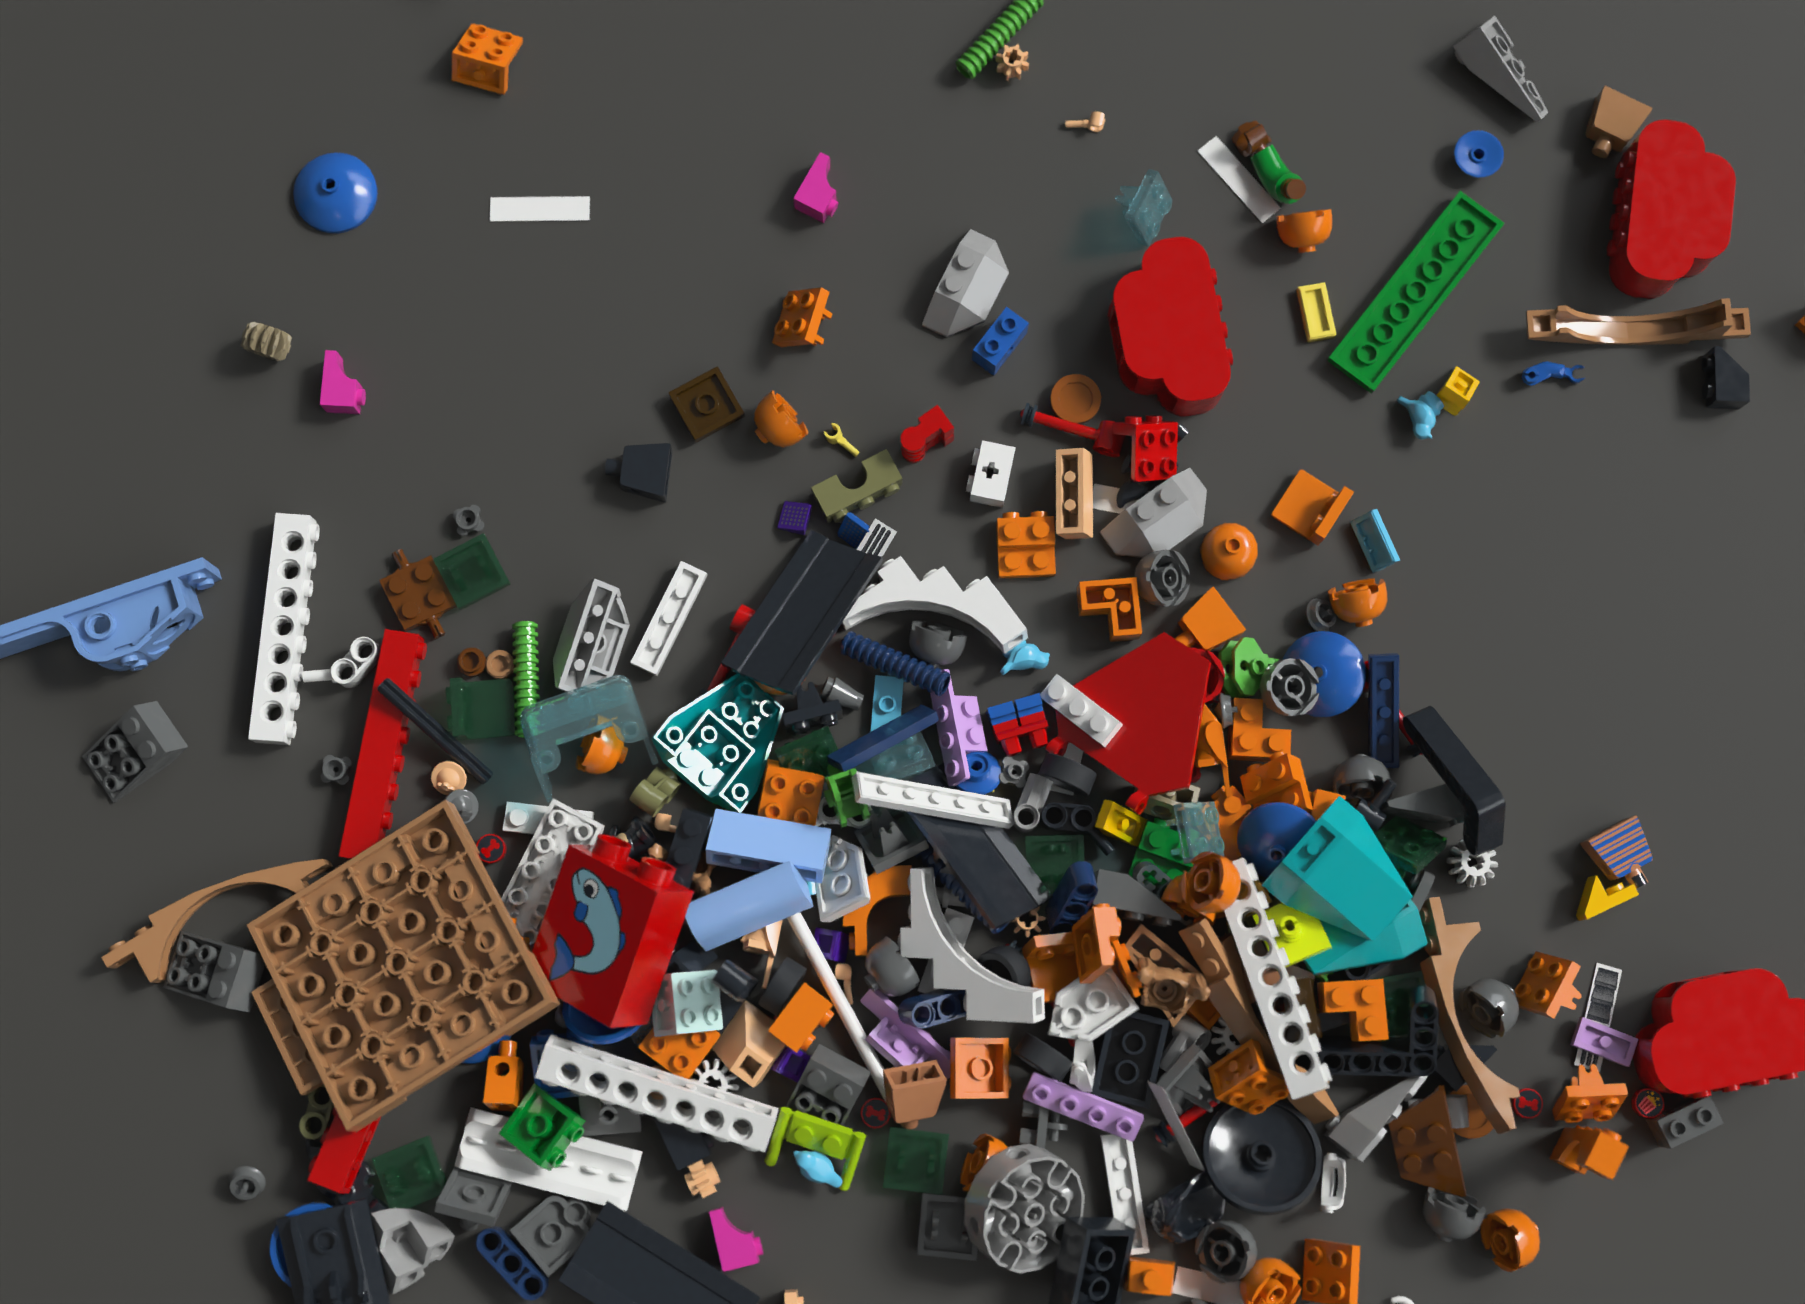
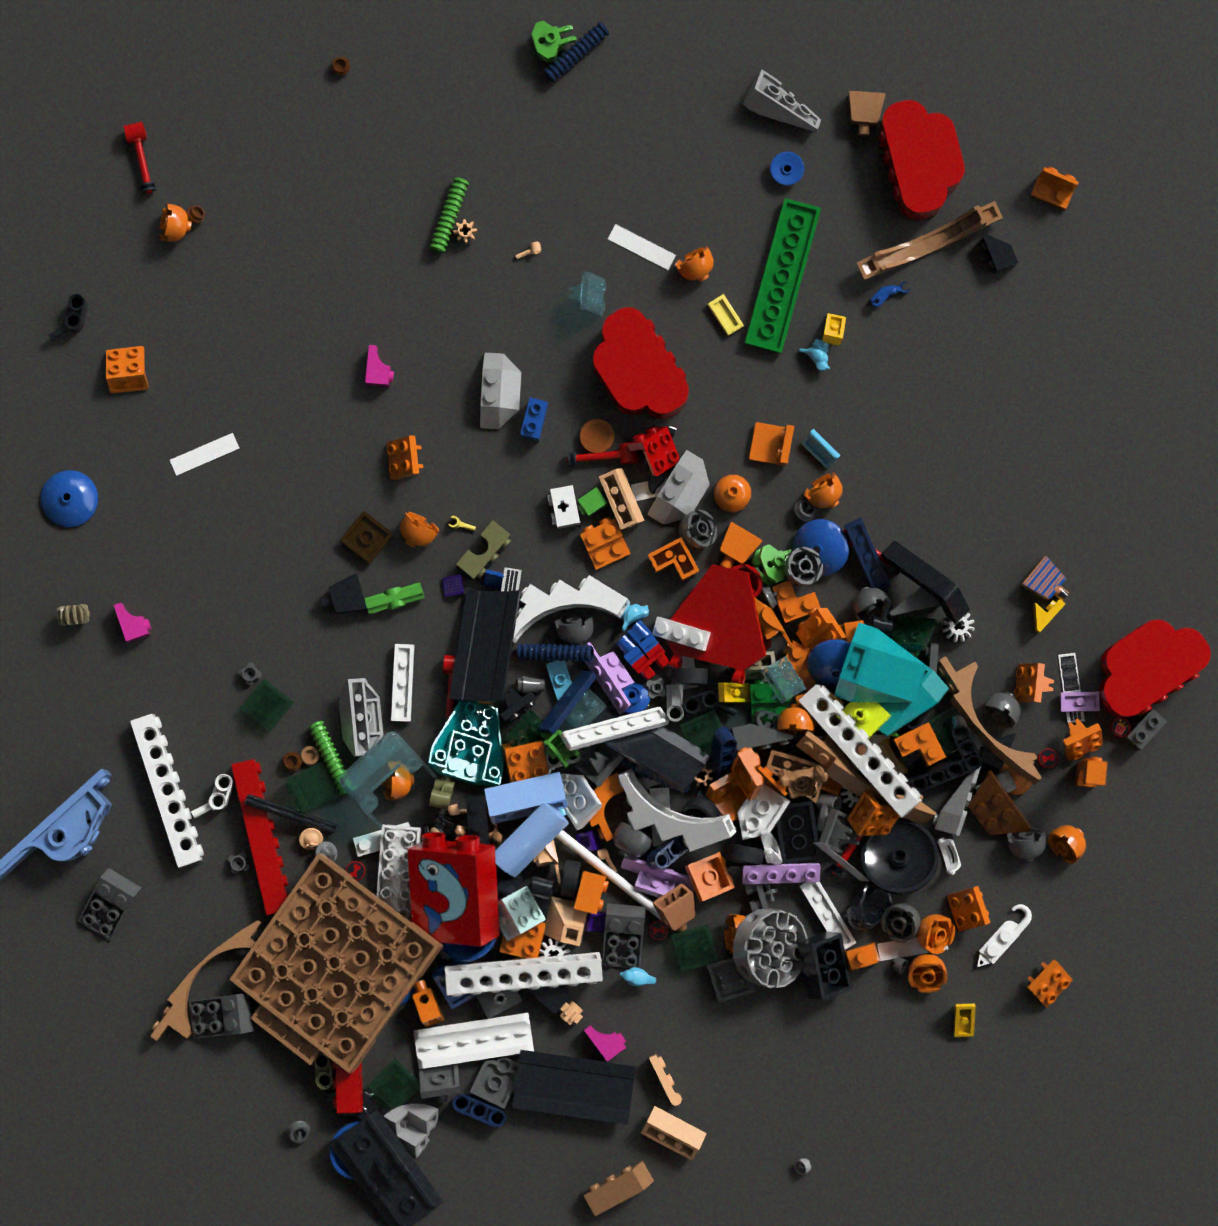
camera: 20 degrees left, 5 degrees up
(418, 593) = (239, 733): reddish brown plate -> none
(543, 1128) = (463, 1023): green plate -> none
(708, 500) = (394, 598): none -> bright green piece
(818, 1136) = (630, 958): lime plate -> none
(931, 429) = (514, 497): red legs -> none
(1012, 687) = (633, 637): none -> blue leg
(1031, 483) = (591, 502): none -> bright green brick
(1213, 877) = (802, 709): orange cylinder -> none
(1271, 170) = (655, 230): piece -> none

